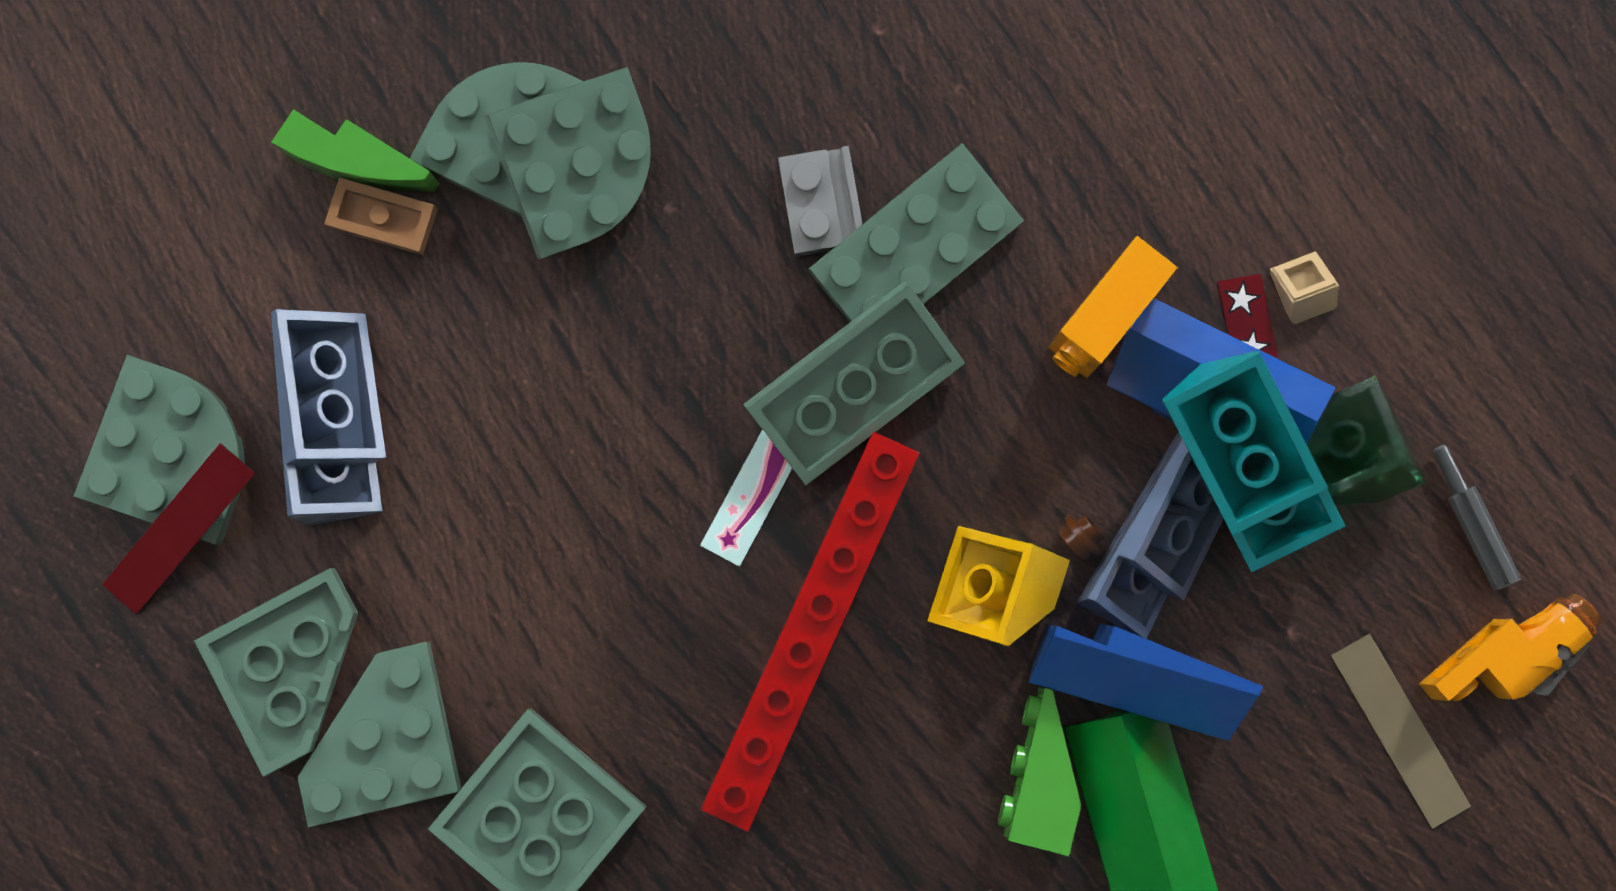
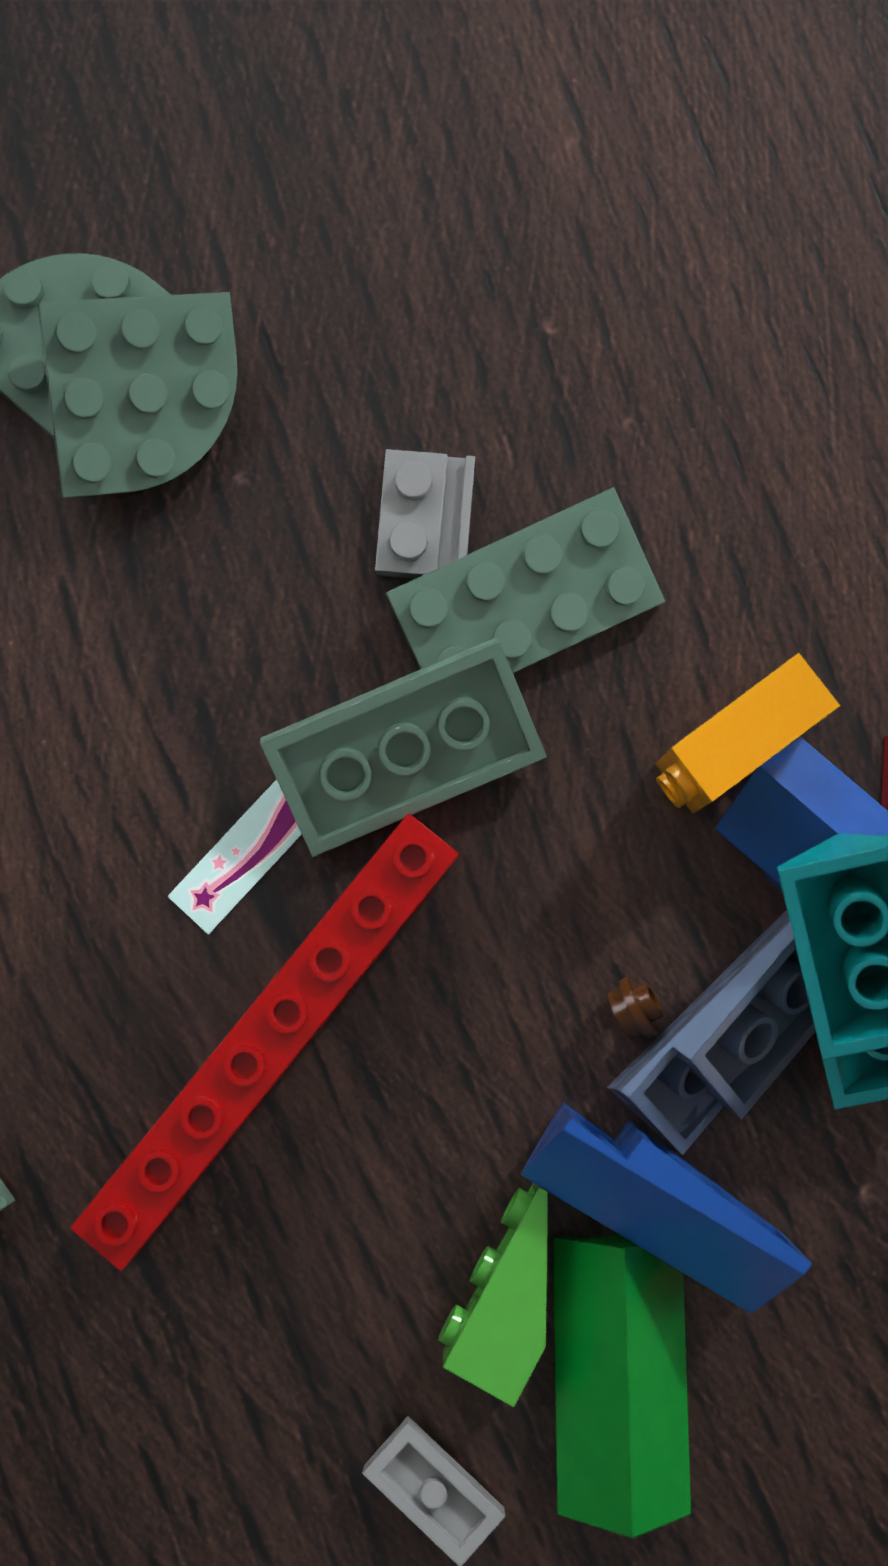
camera: 15 degrees right, 0 degrees up
(996, 586) = (513, 1044): yellow slope -> none

